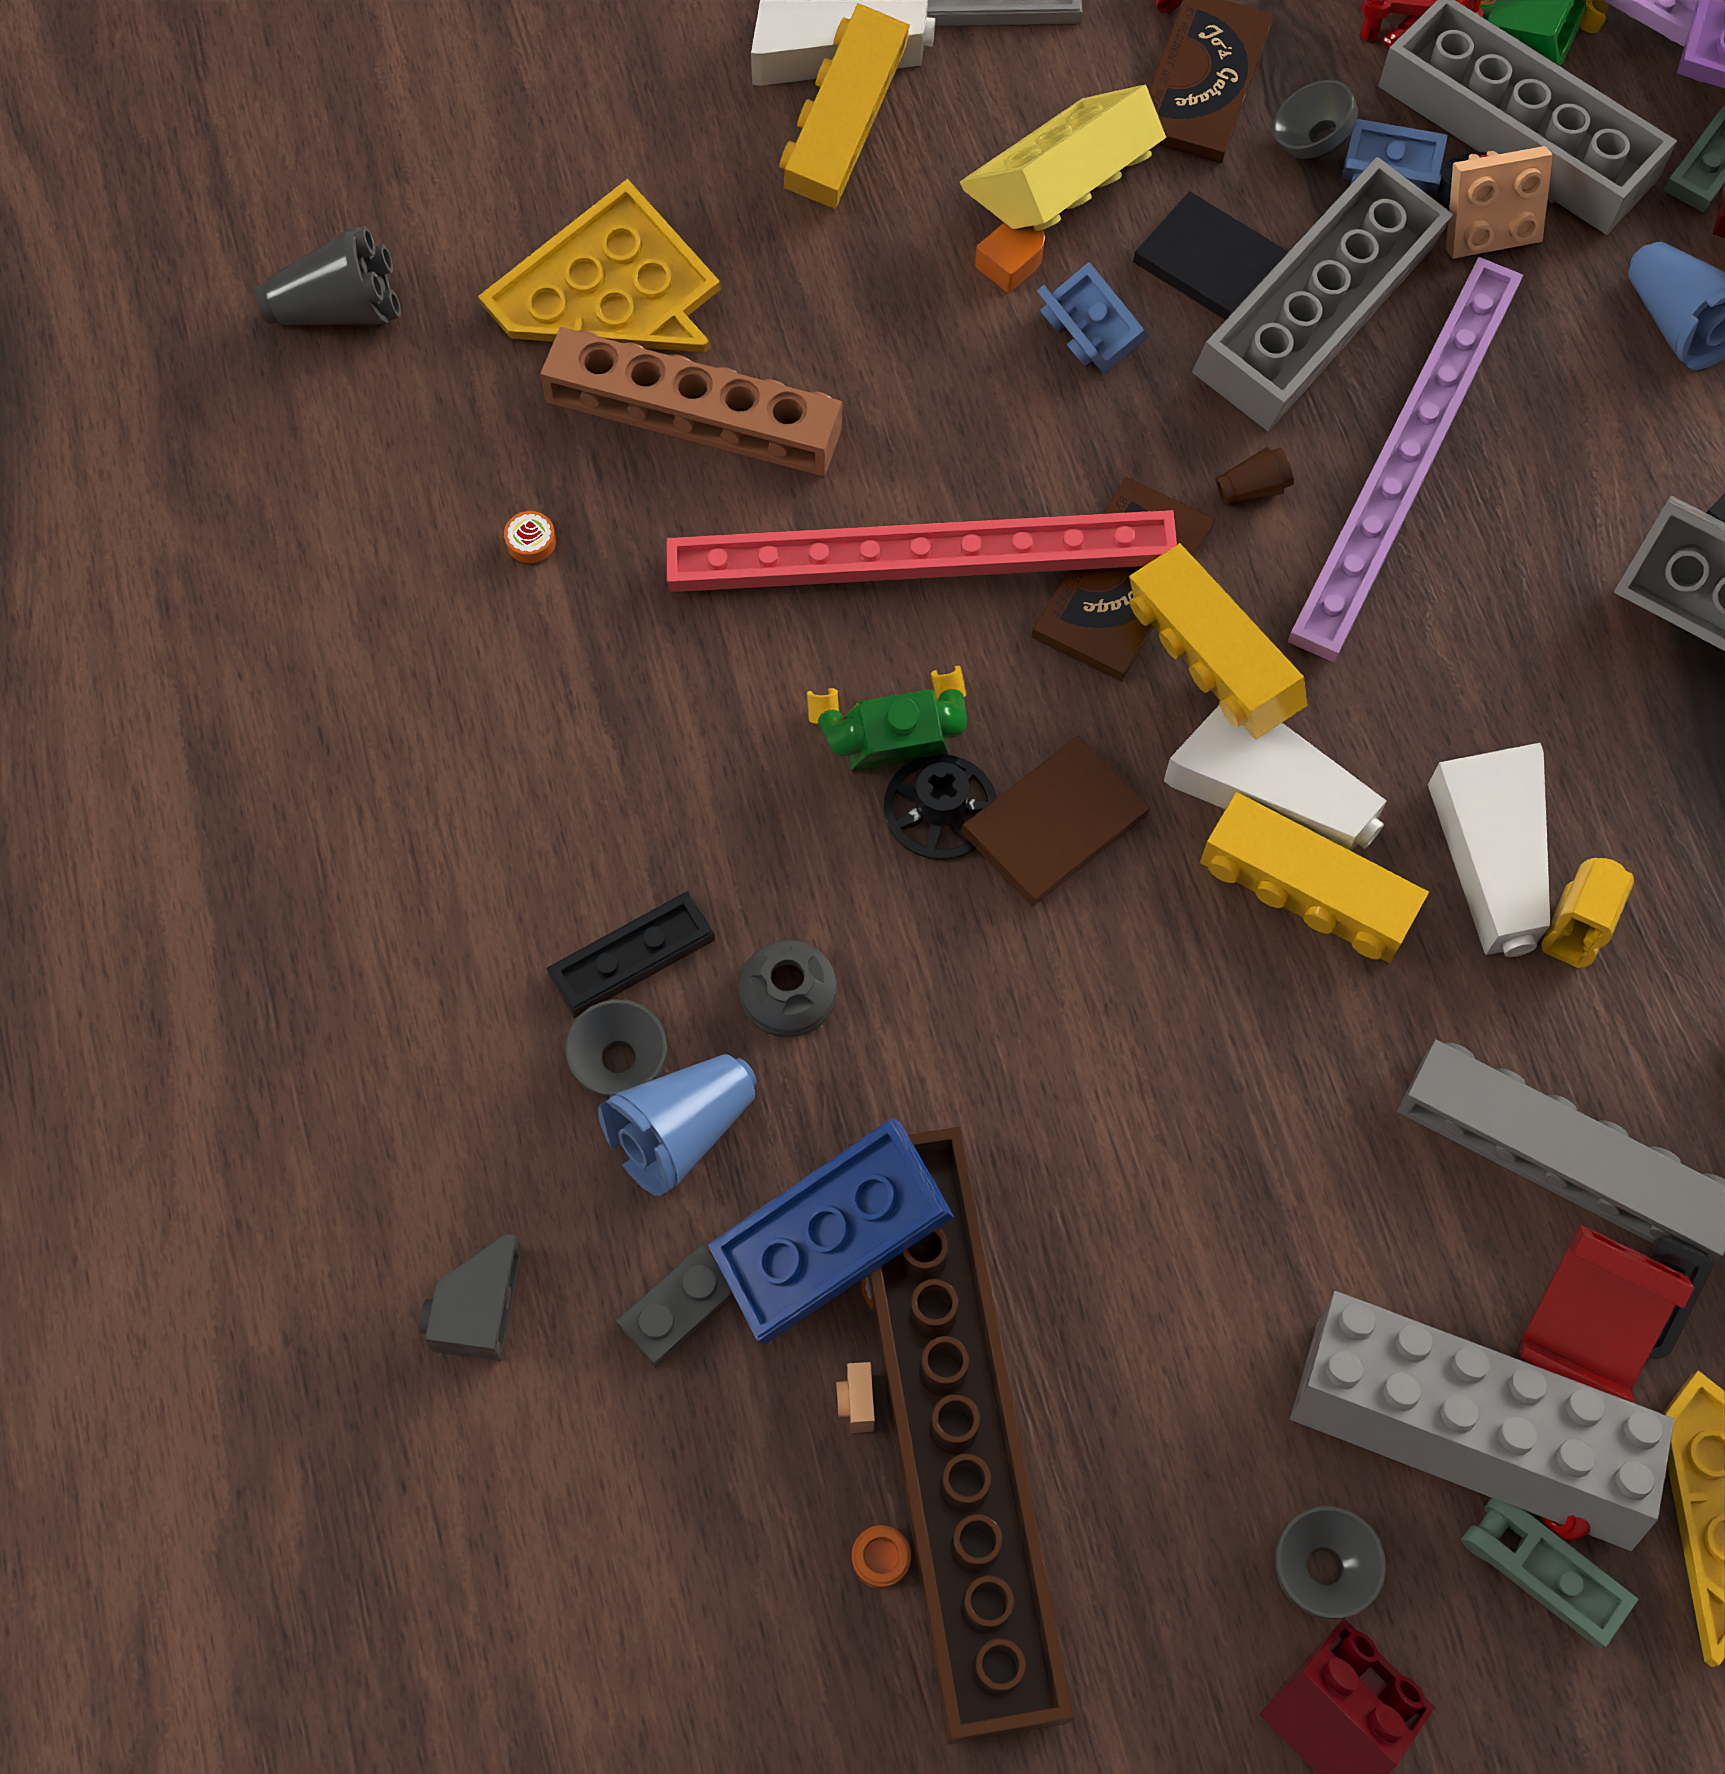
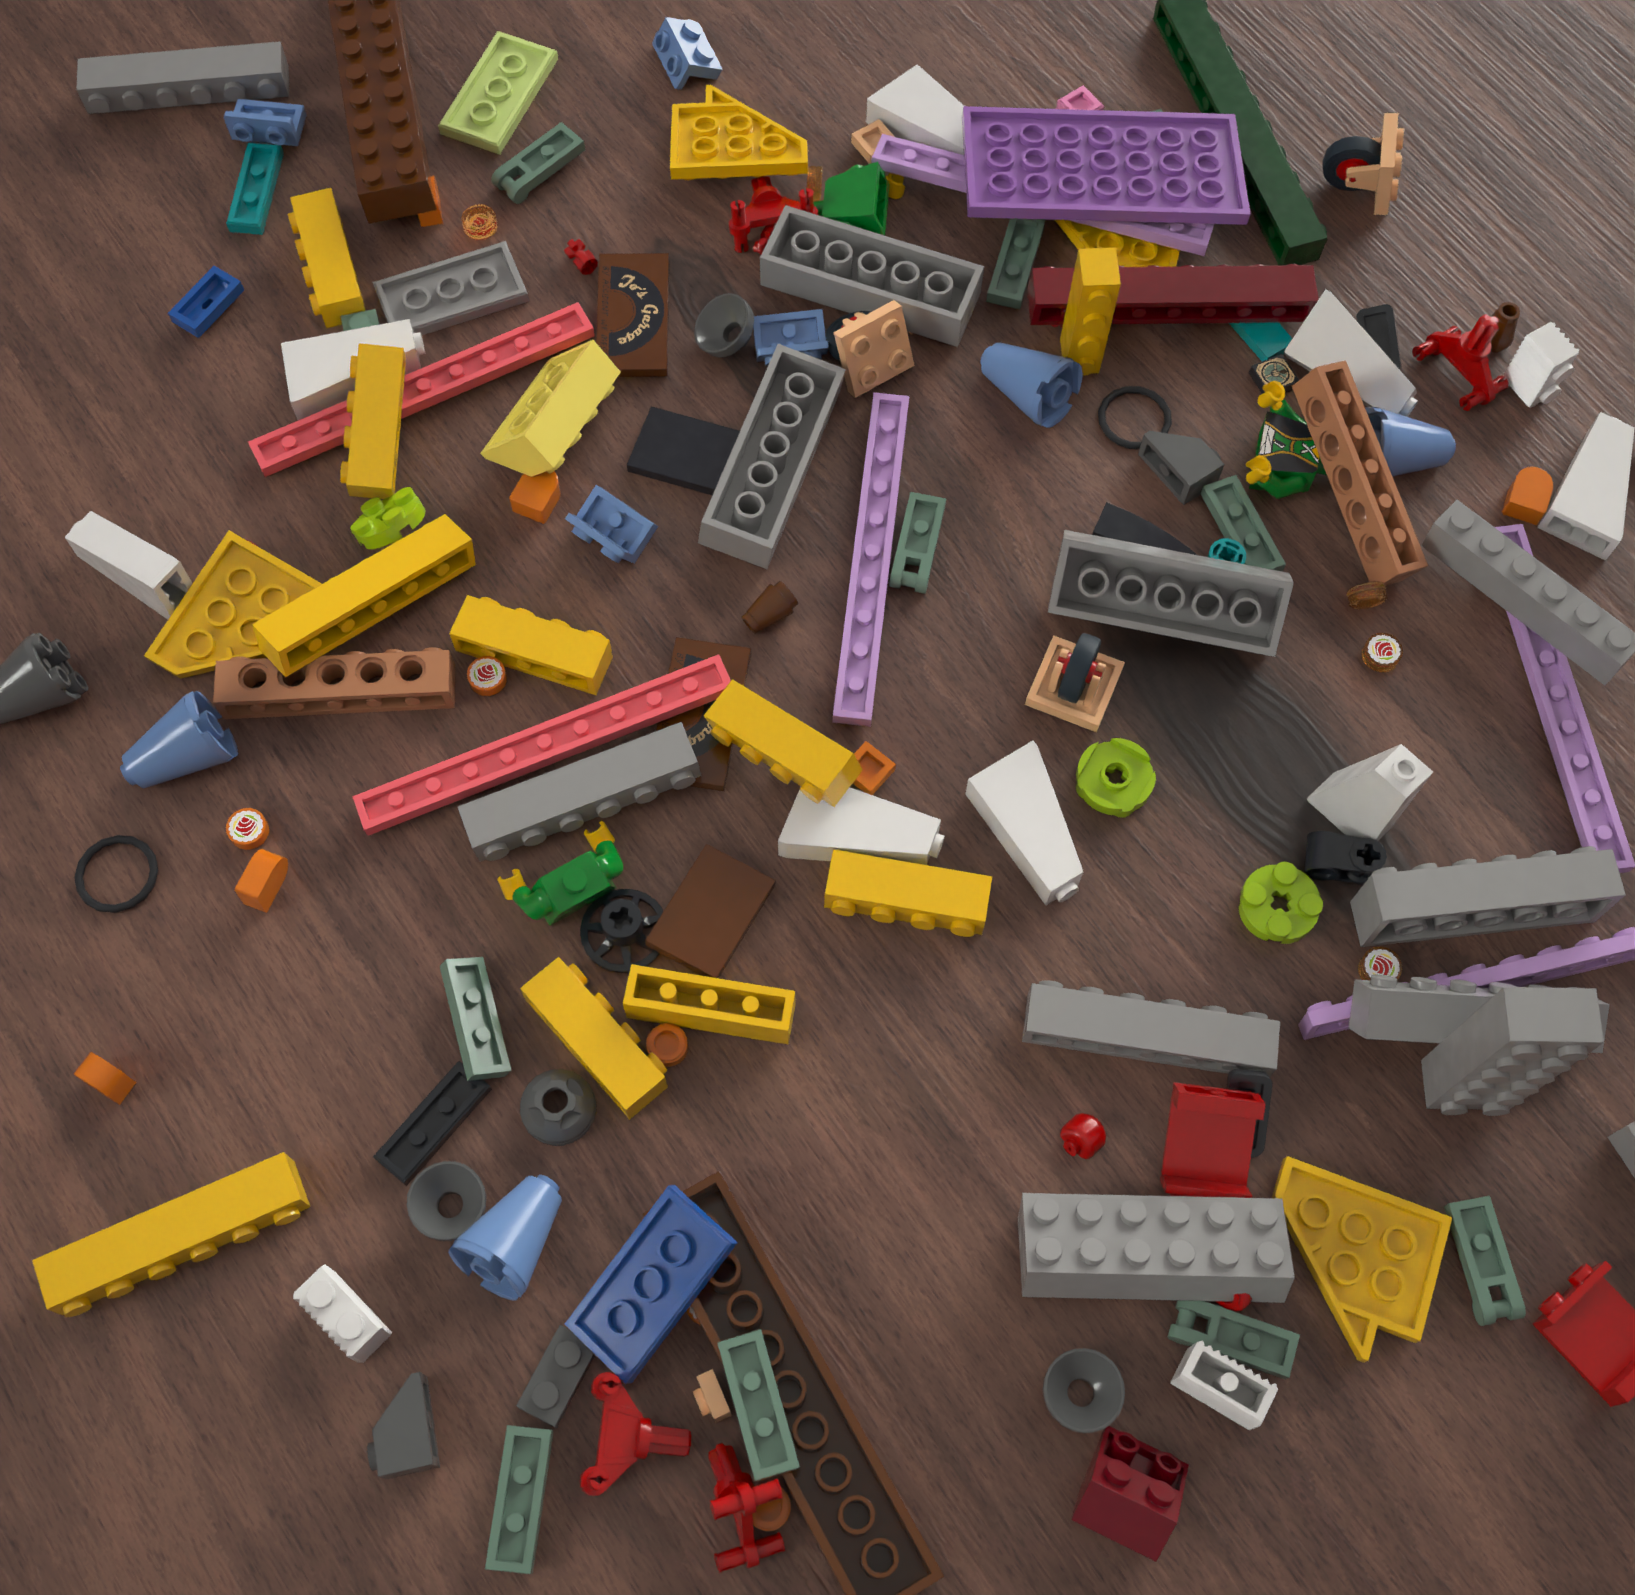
camera: 20 degrees left, 0 degrees up
(267, 767) = (104, 1078): none -> orange piece
(282, 975) = (171, 1235): none -> yellow brick
(359, 499) = (80, 887): none -> black piece
(447, 1137) = (342, 1314): none -> white brick
(484, 410) = (179, 744): none -> medium blue cone
(500, 184) = (130, 563): none -> white slope
(526, 601) = (262, 880): none -> orange piece
(582, 1433) = (519, 1500): none -> sand green plate
(724, 847) = (475, 1018): none -> sand green plate
(736, 1404) = (626, 1436): none -> red axle
(763, 304) = (364, 595): none -> yellow brick
(817, 224) = (385, 518): none -> lime plate
(851, 1523) = (739, 1496): none -> red axle
(861, 919) = (594, 1037): none -> yellow brick
(876, 450) = (486, 676): none -> tile
(912, 1422) = (758, 1405): none -> sand green plate
(929, 85) = (430, 385): none -> coral plate
(945, 429) = (532, 644): none -> yellow brick
(945, 622) = (580, 792): none -> light grey brick
(946, 960) = (668, 1044): none -> orange tile
(1017, 927) = (709, 1004): none -> yellow brick
(1322, 715) = (875, 767): none -> orange plate
(1436, 1254) = (1083, 1135): none -> red piece
(1473, 456) = (918, 541): none -> sand green plate
(1517, 1624) = (1224, 1385): none -> white brick
(1588, 912) = (1106, 853): yellow brick -> none
(1620, 690) = (1075, 681): none -> light nougat plate
(1645, 799) = (1109, 797): none -> lime plate

